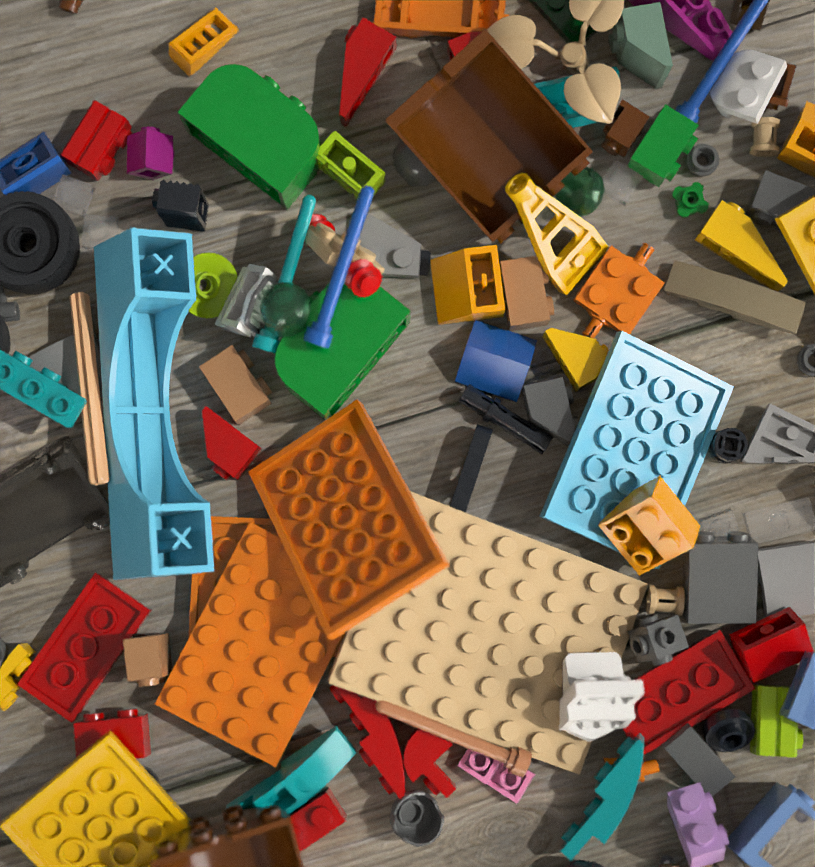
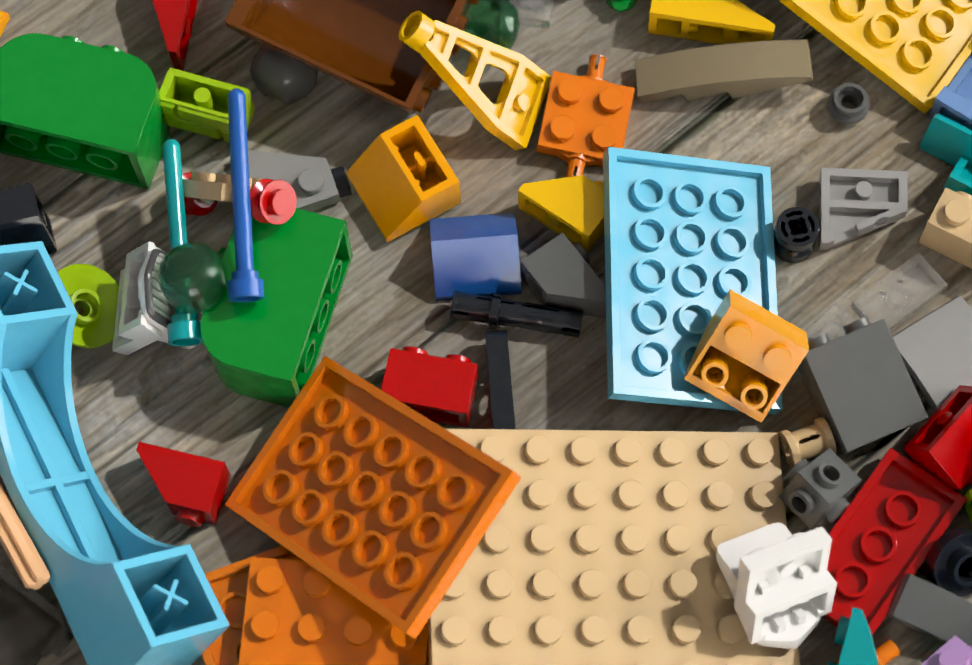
camera: 20 degrees left, 15 degrees down
(236, 385) = (167, 406): medium nougat brick -> none
(421, 448) = (432, 384): none -> red brick
(525, 293) = (479, 164): medium nougat brick -> none

